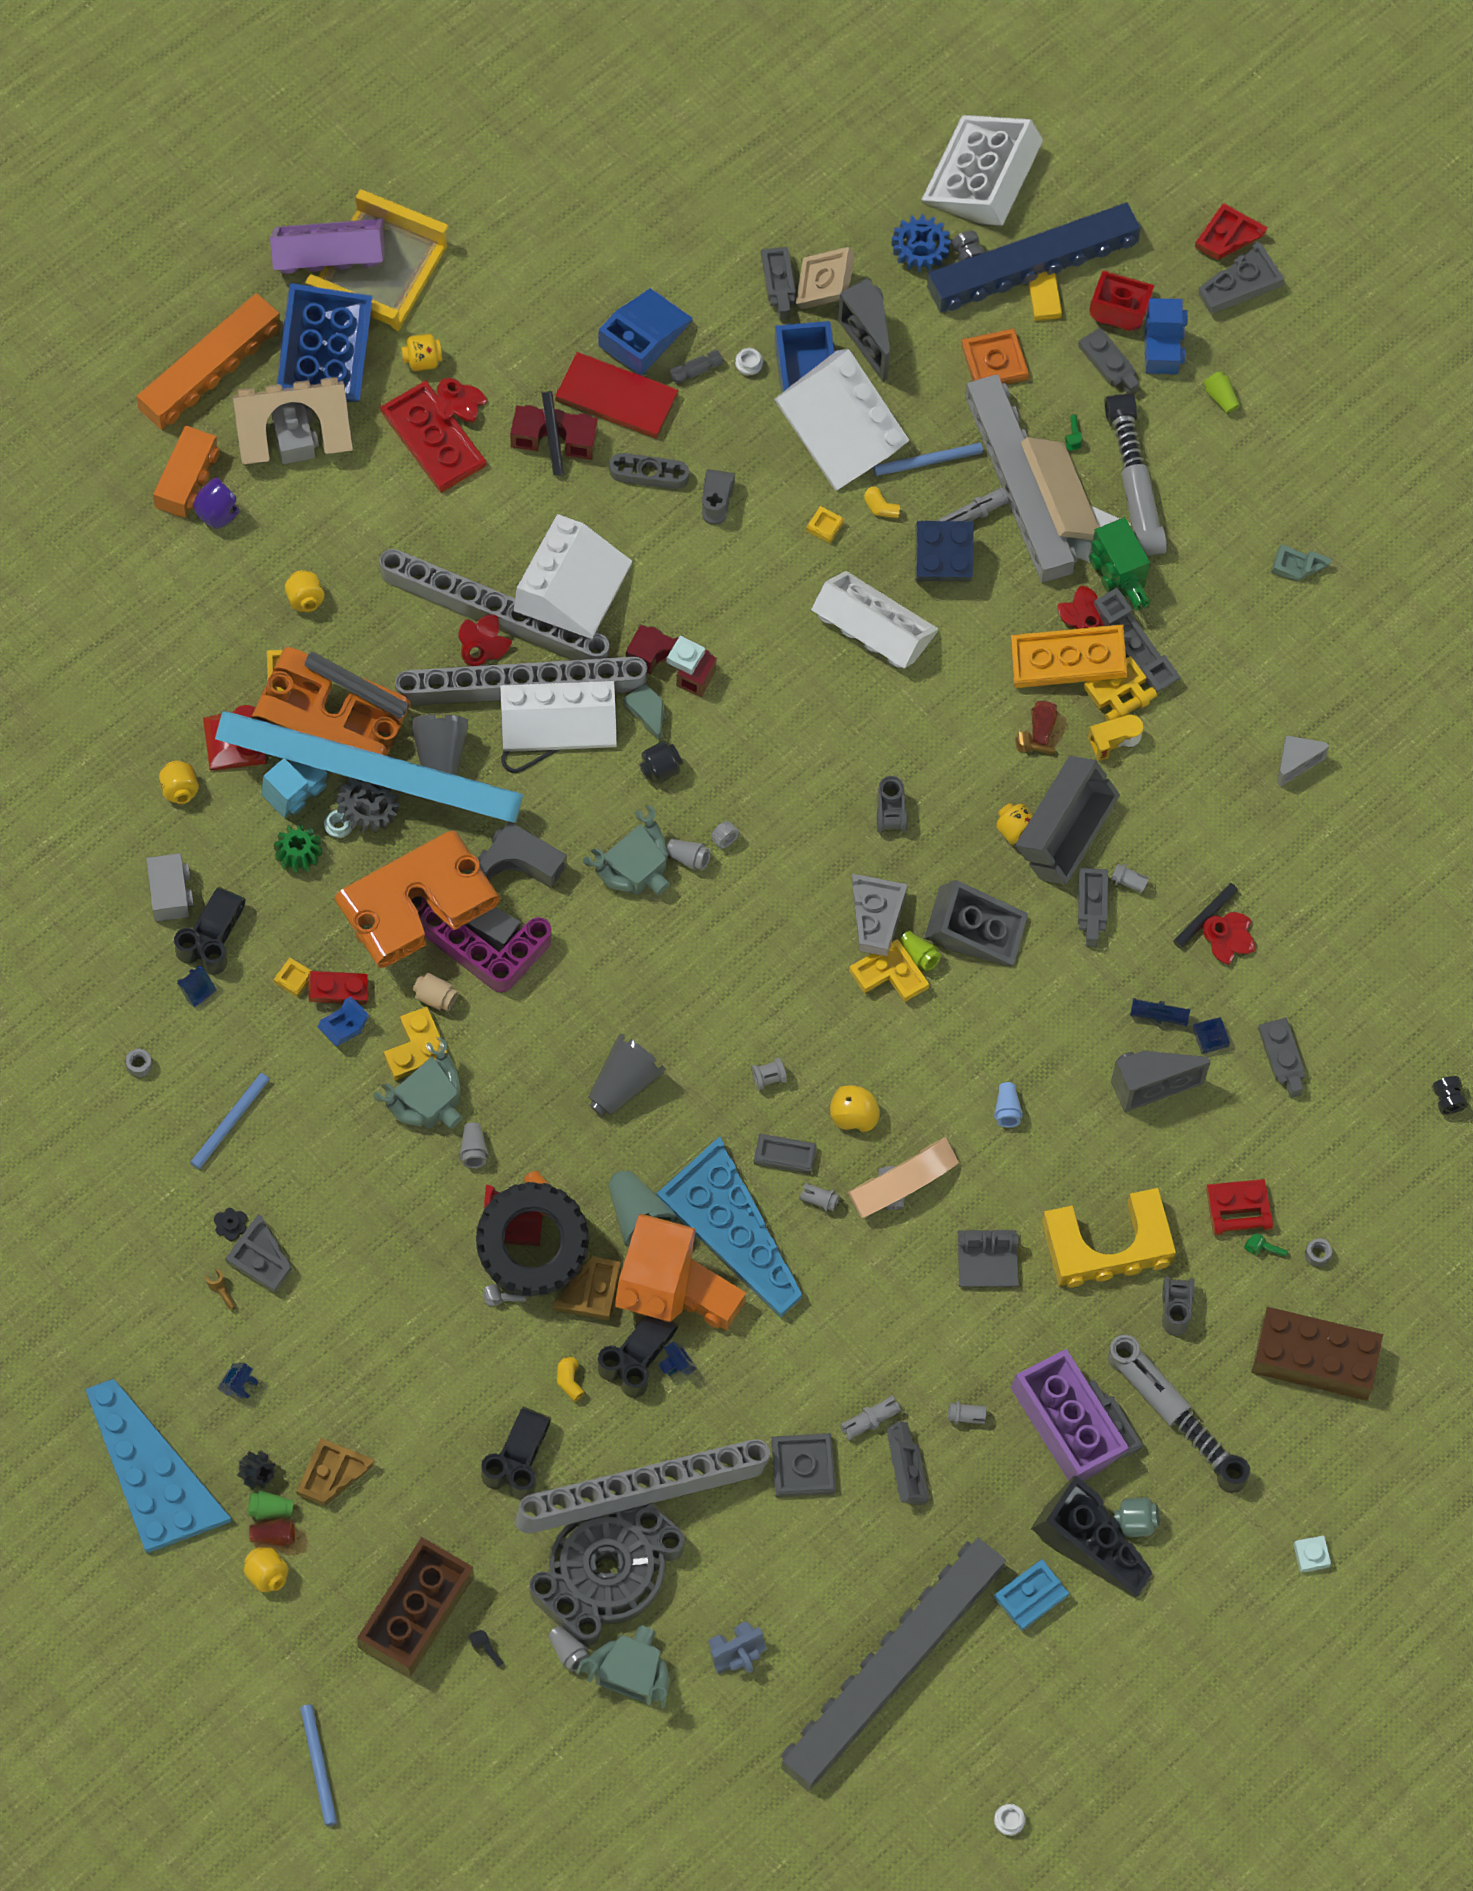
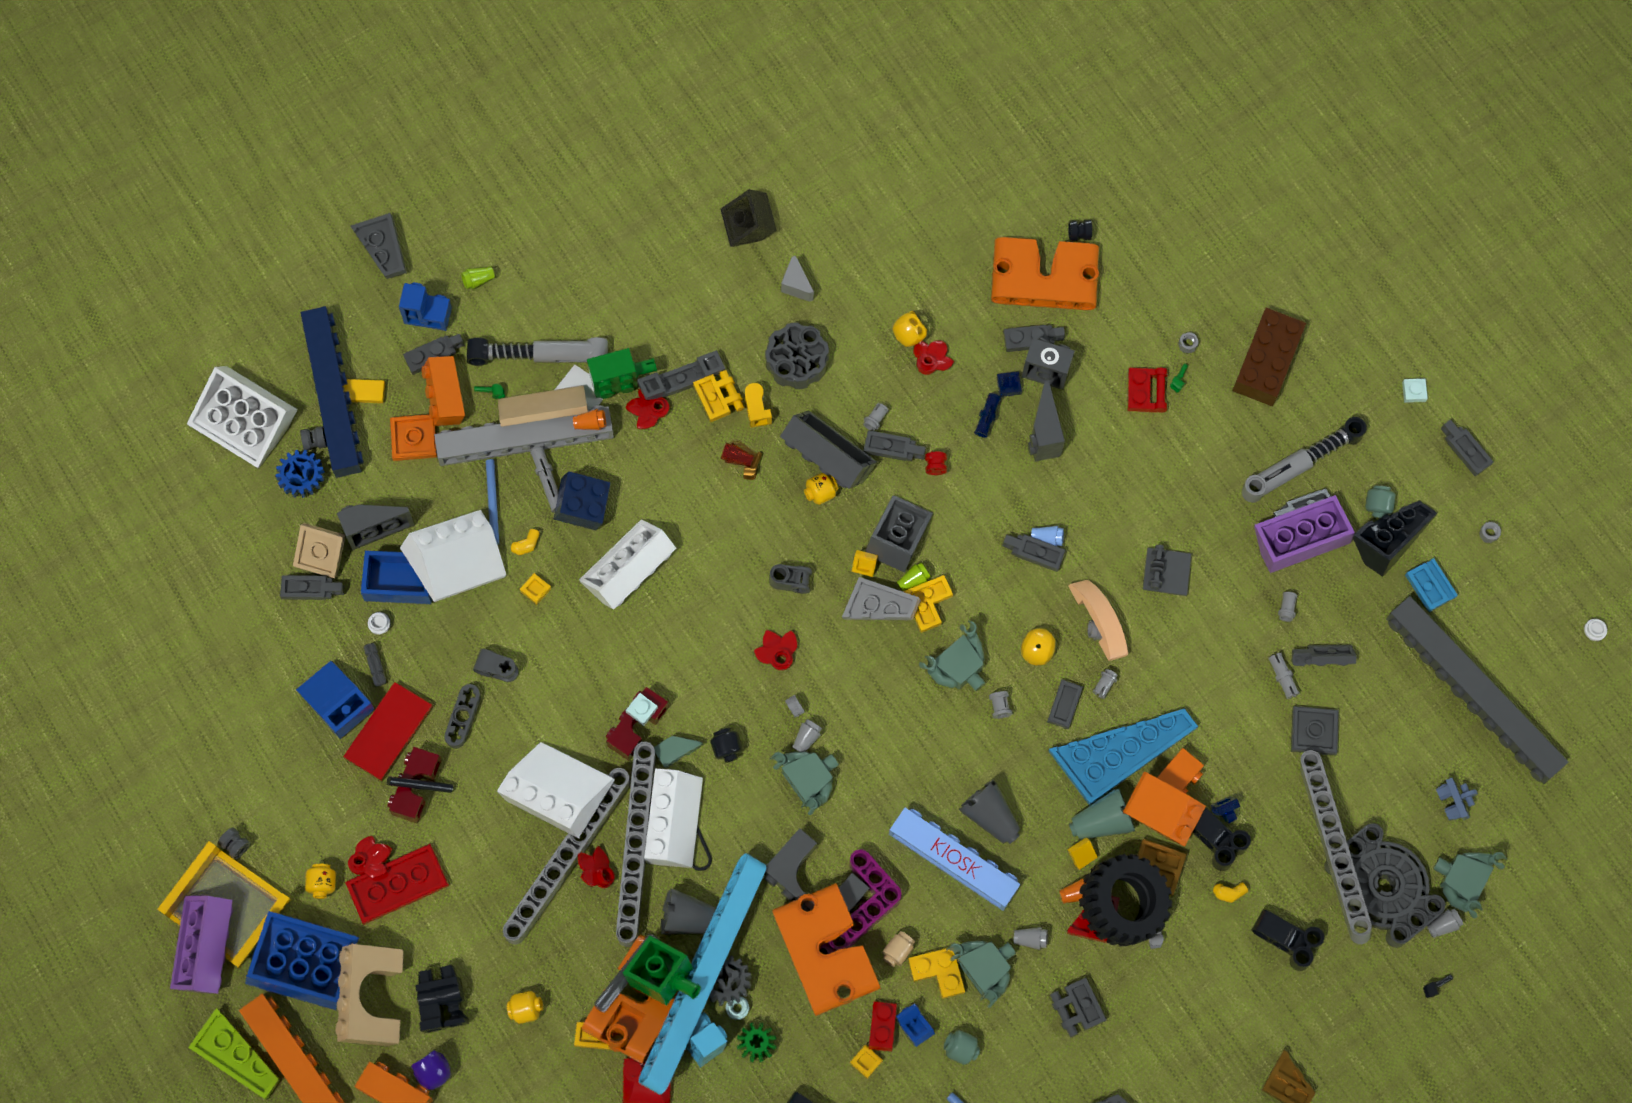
camera: 80 degrees left, 5 degrees up
(208, 299) = (231, 1053): none -> lime wing
(293, 432) = (379, 996): light grey brick -> none
(304, 495) = (435, 994): none -> black hips
(324, 1079) = (961, 1047): none -> sand green head
(358, 712) = (660, 972): none -> green brick
(399, 1216) = (1084, 1004): none -> dark grey plate
(415, 1607) = (1408, 1033): reddish brown brick -> none
(454, 255) = (234, 843): none -> dark grey wheel
(559, 1042) = (954, 858): none -> light blue brick
(590, 1193) = (1082, 853): none -> yellow tile
(799, 805) = (777, 647): none -> red plate
(815, 1016) = (959, 662): none -> sand green torso
(927, 889) = (864, 563): none -> yellow tile
(983, 1092) = (1035, 551): none -> dark grey hinge
(1048, 540) = (590, 420): none -> orange cone
(1058, 376) = (443, 391): none -> orange brick
(1069, 656) = (685, 426): light orange tile -> none
(1078, 1263) = (1172, 455): yellow arch -> none
(1080, 957) = (936, 463): none -> red wheel
(1120, 301) = (383, 333): red slope -> none
(1123, 1679) = (1490, 525): none -> light grey axle
(1166, 776) = (812, 355): none -> dark grey connector
(1177, 1299) = (1218, 443): dark grey piece -> none
(1208, 912) = (912, 370): black bar -> none
(1228, 232) = (337, 246): red wing -> none
(1238, 1627) = (1466, 448): none -> dark grey hinge
(1244, 1070) = (1048, 363): none -> dark grey brick
(1259, 900) = (909, 329): none -> yellow helmet
(1296, 564) = (633, 252): sand green slope -> none
(1369, 1085) = (1028, 287): none -> orange connector
(1373, 690) = (748, 218): none -> clear smoke slope

